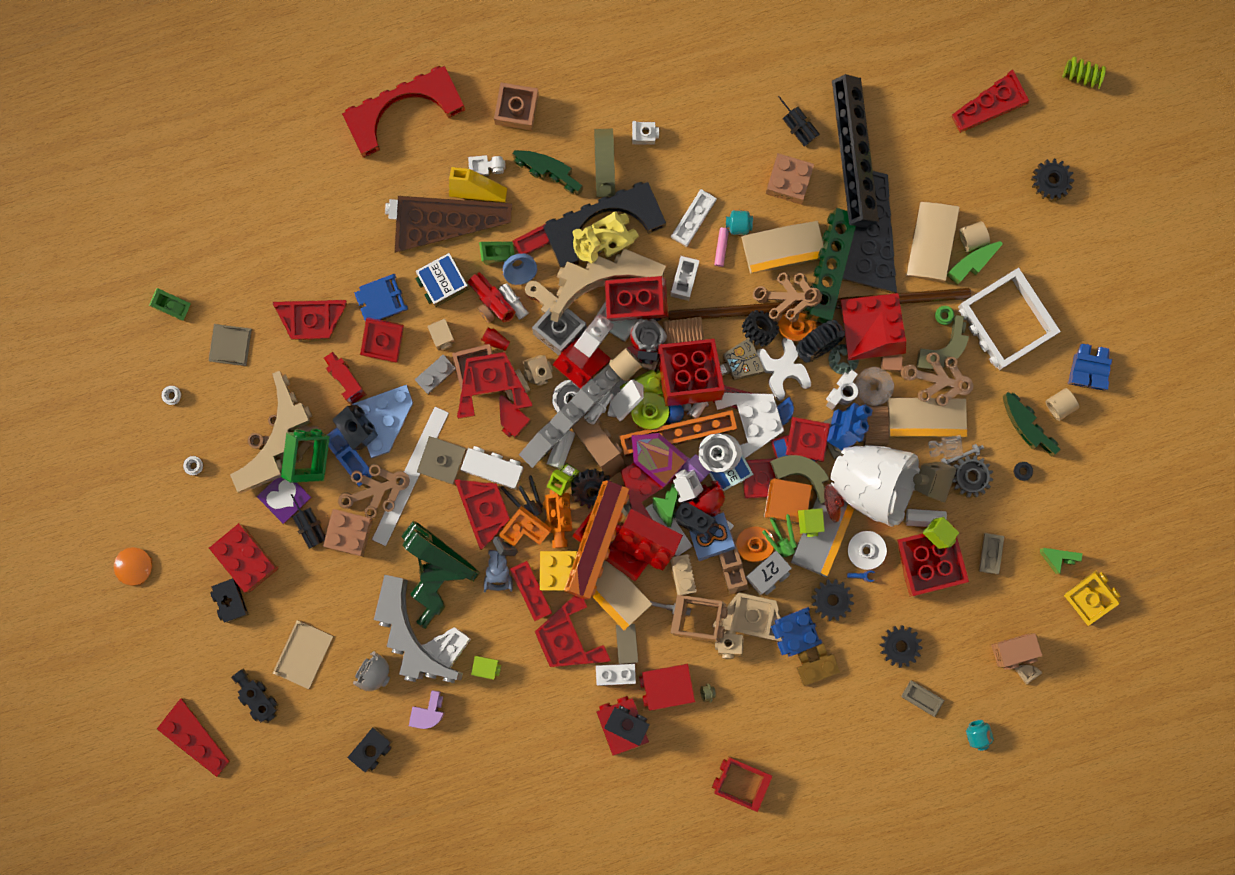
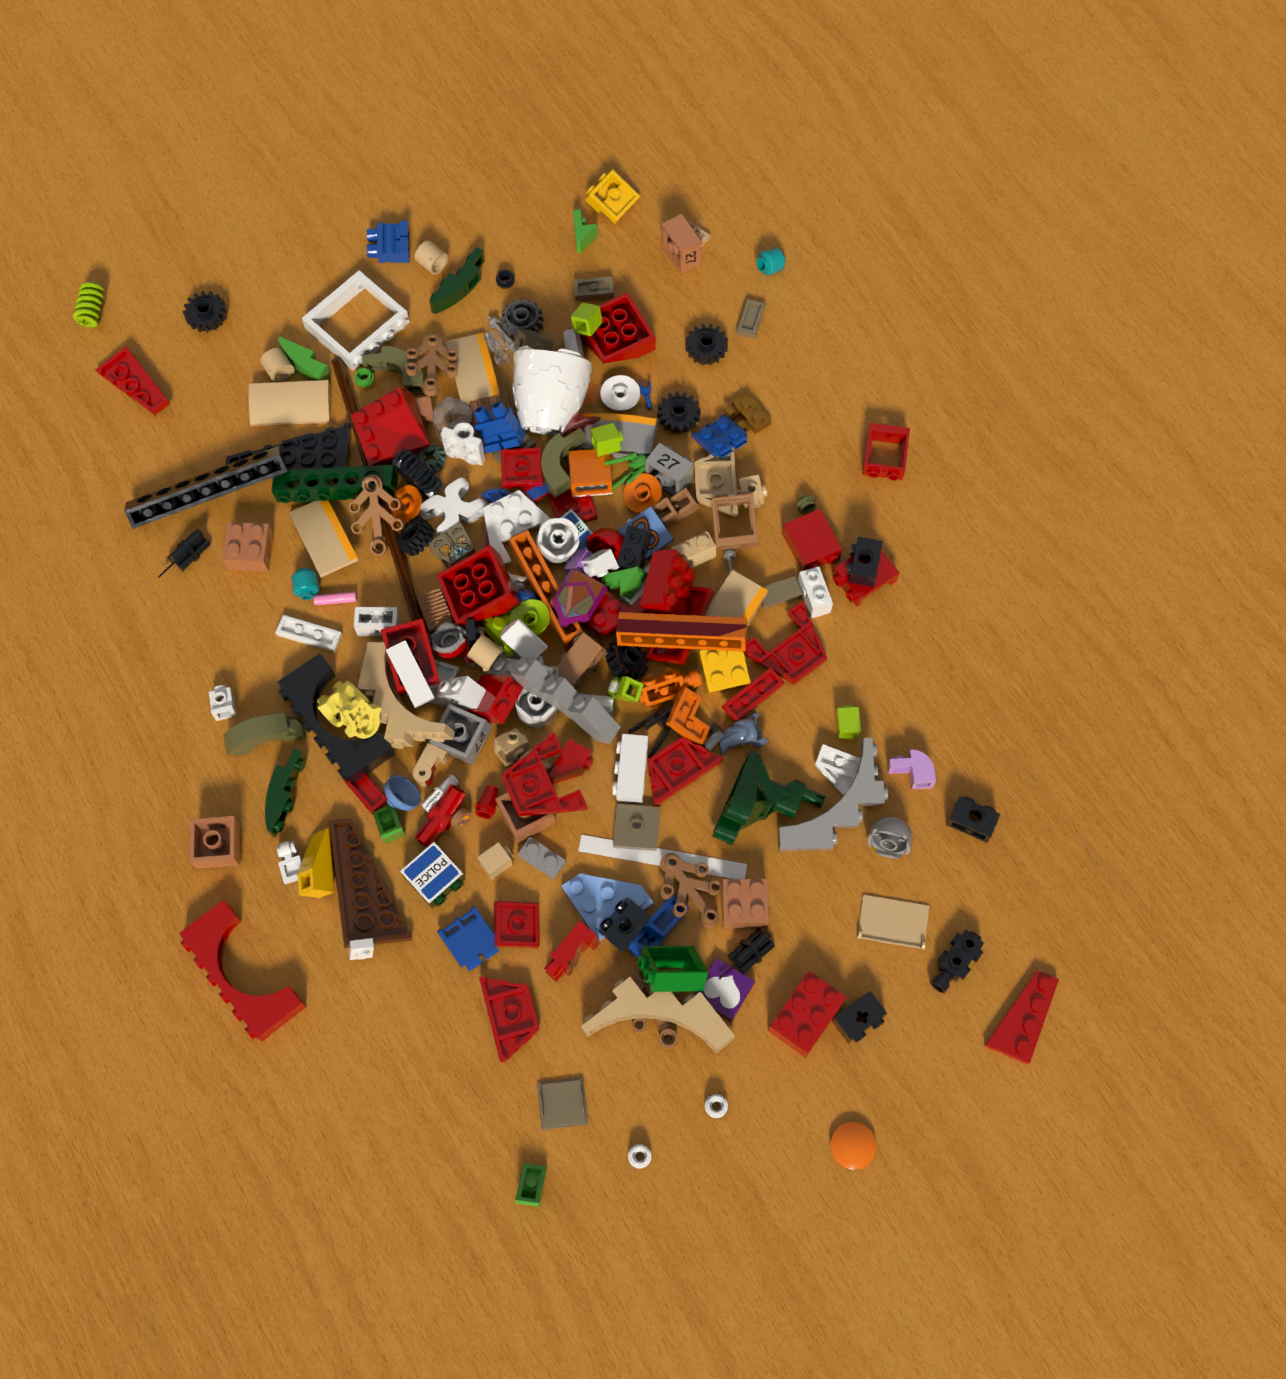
camera: 105 degrees left, 15 degrees down
(615, 293) = (410, 674): none -> white tile

